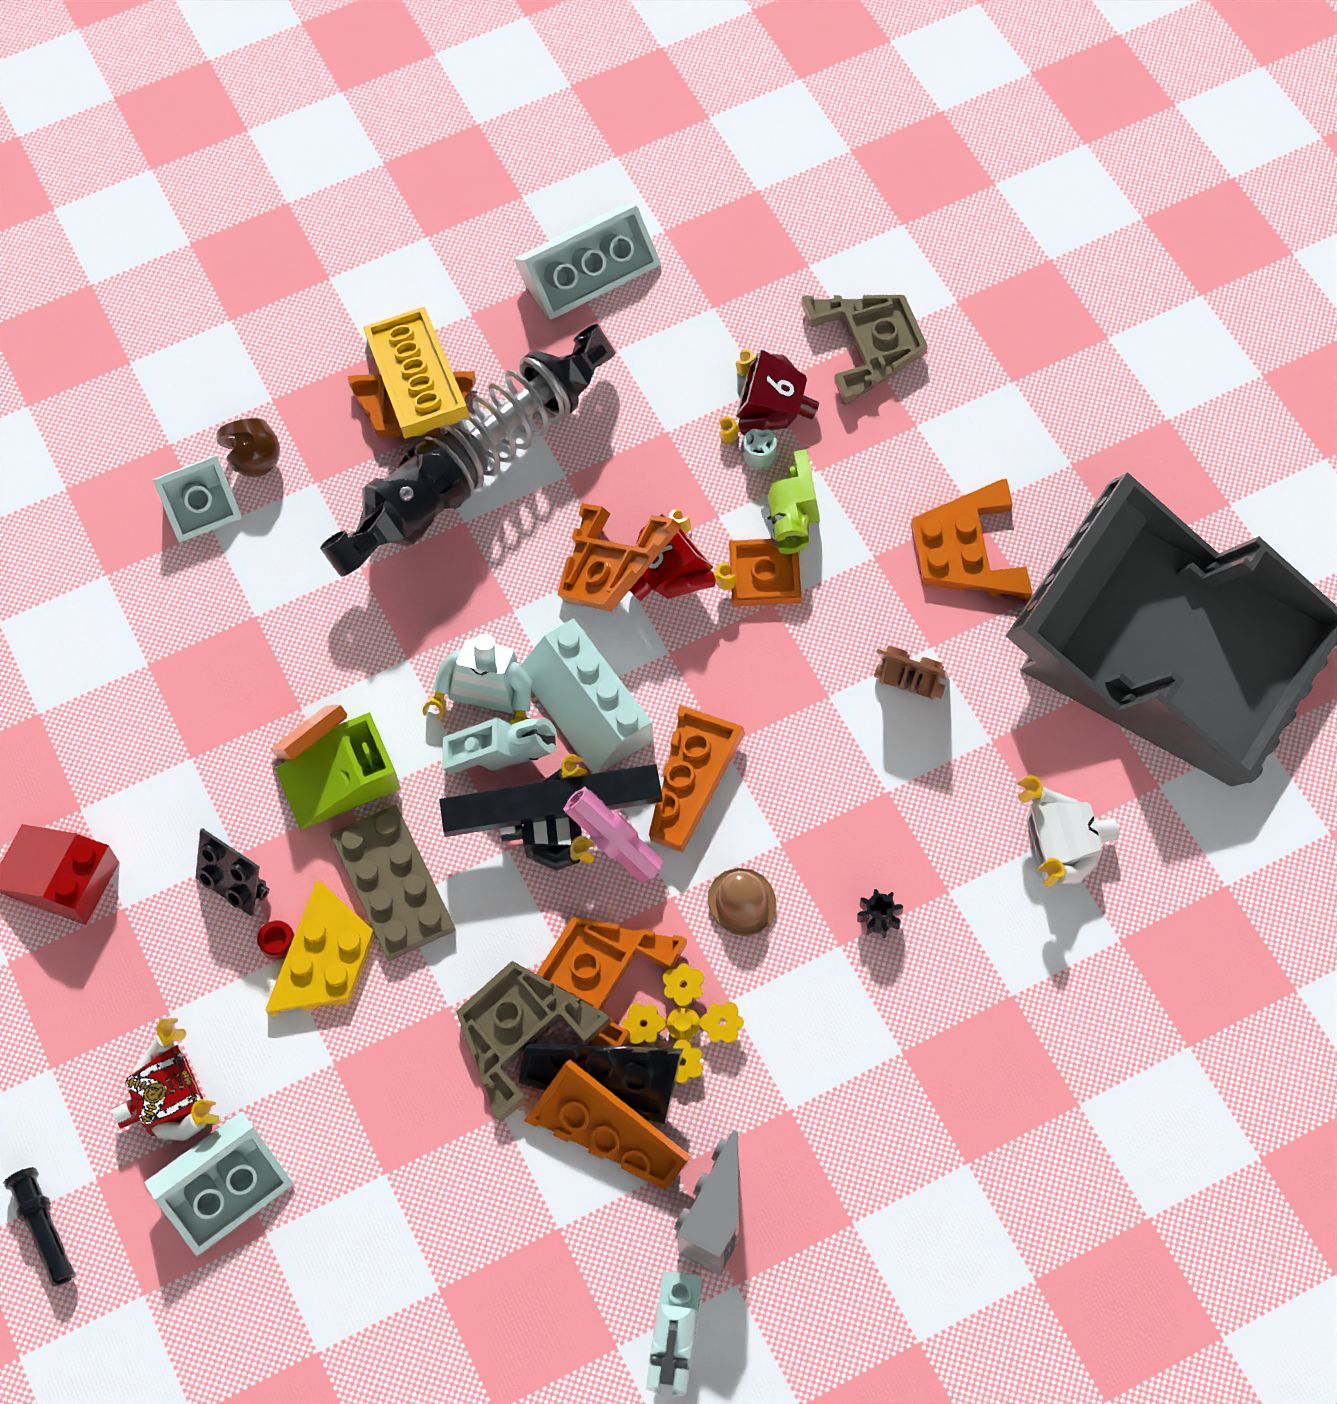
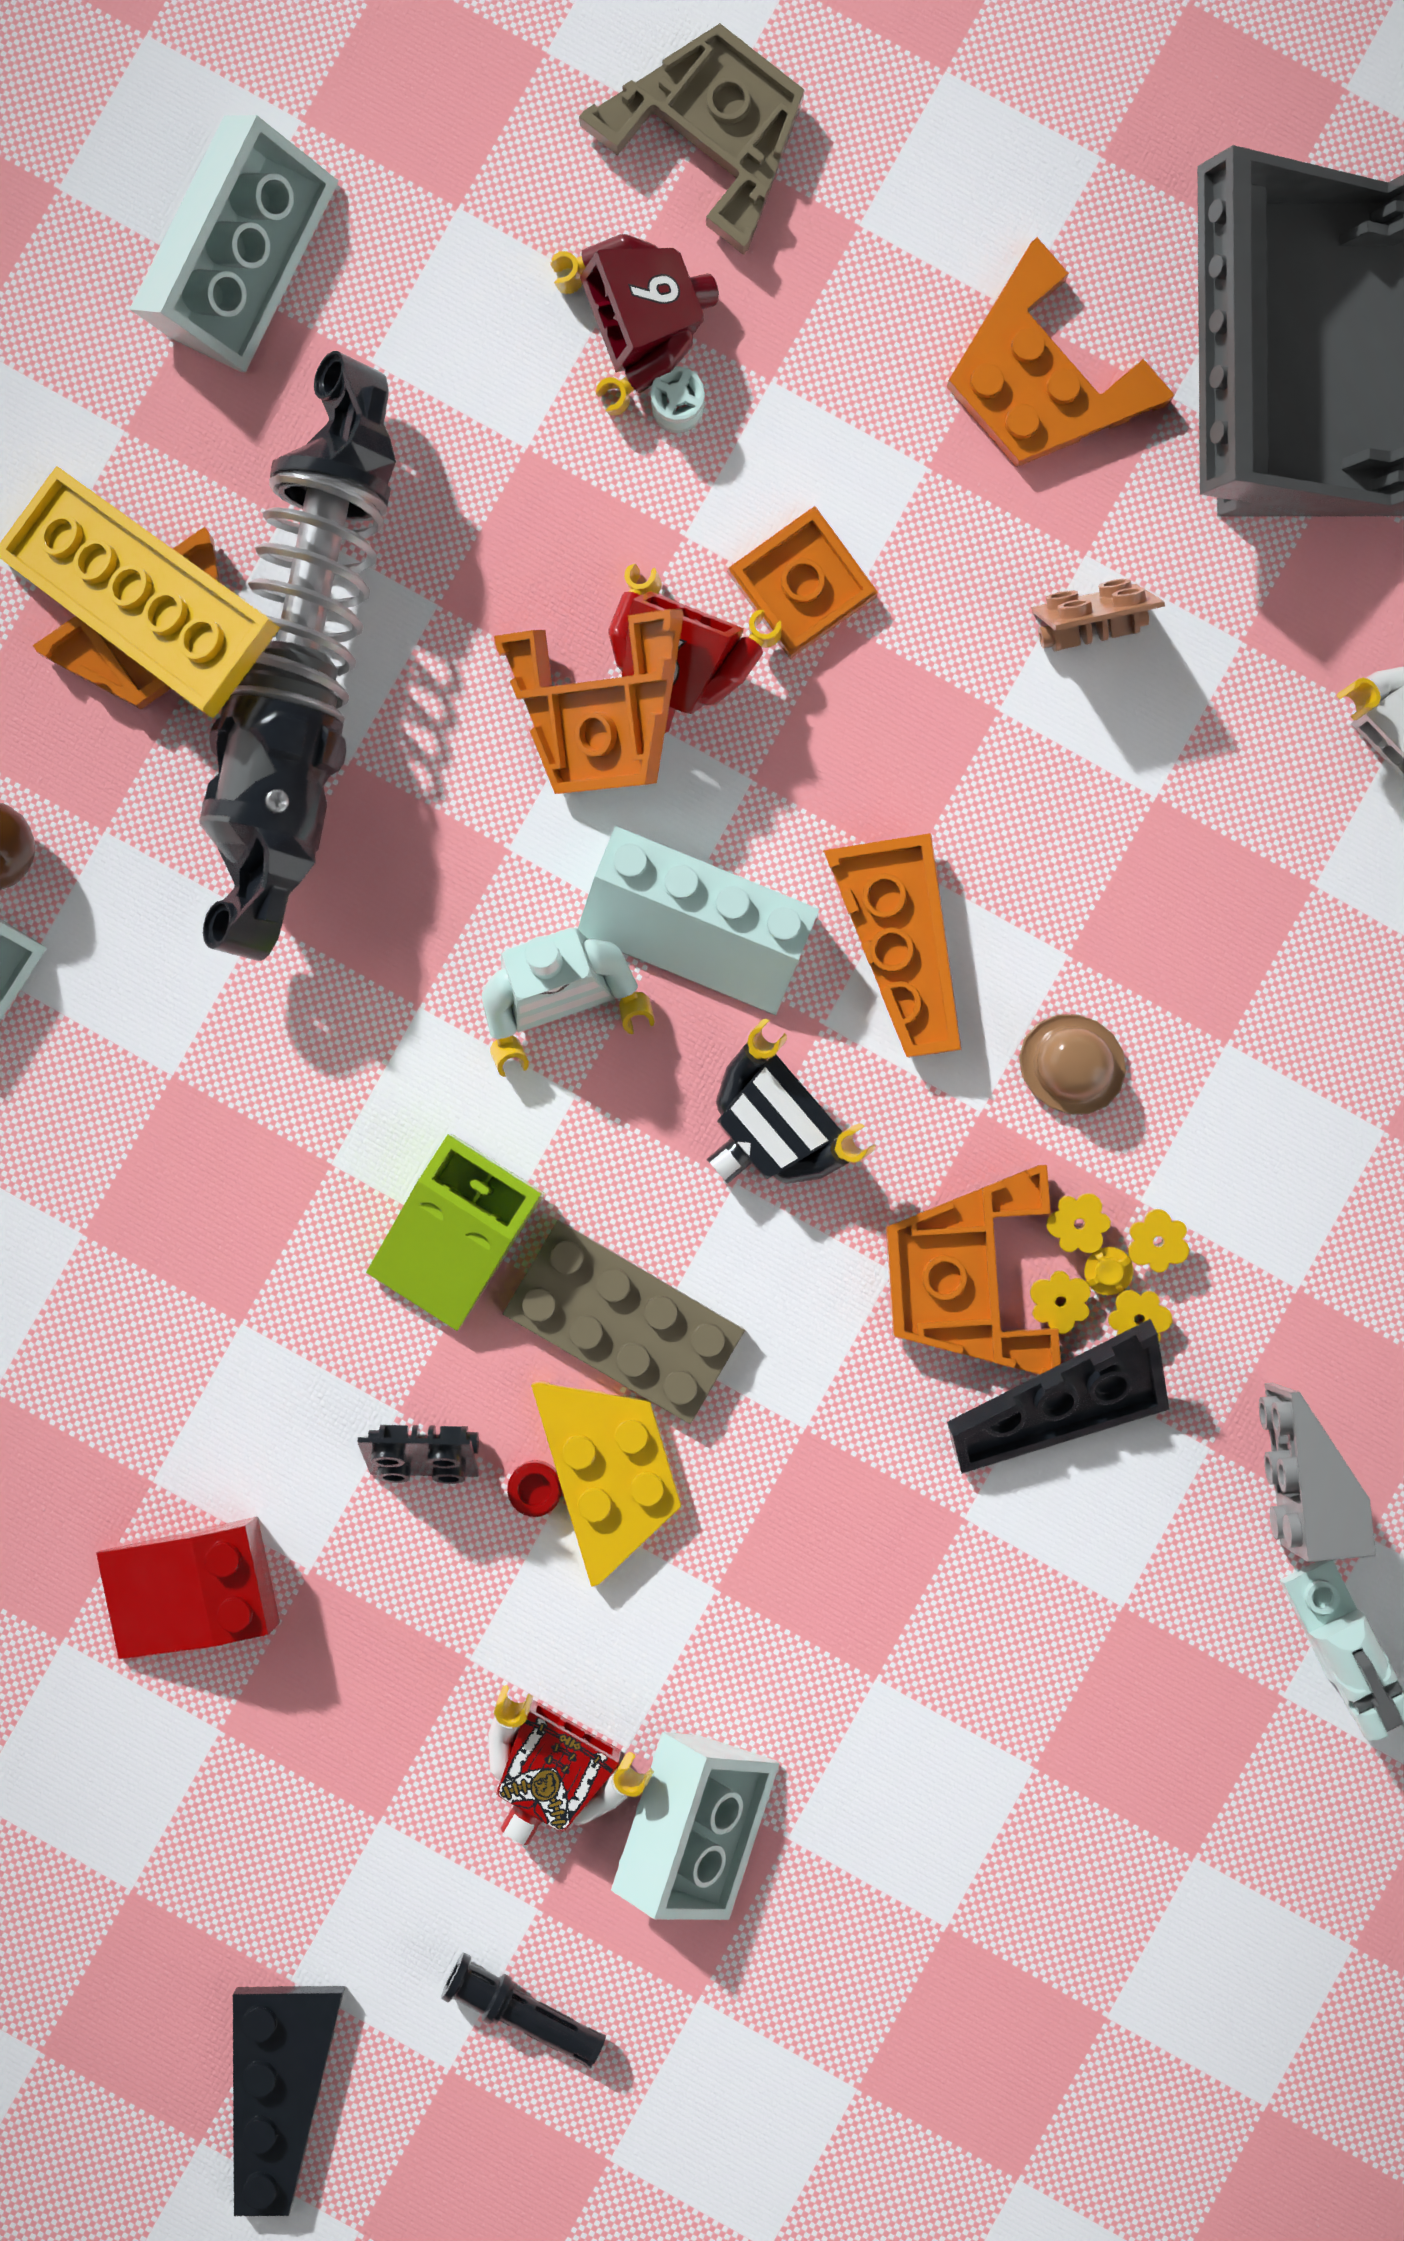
camera: 40 degrees left, 25 degrees up
(309, 732) = (382, 1206): orange tile -> none
(498, 744) = (637, 1062): light aqua plate -> none
(509, 1016) = (901, 1399): dark tan wing -> none
(547, 799) = (765, 1101): black tile -> none
(593, 1117) = (1083, 1459): orange wing -> none
(613, 835) = (876, 1097): bright pink piece -> none
(792, 507) = (786, 466): lime plate -> none
(871, 917) = (1273, 979): black gear -> none

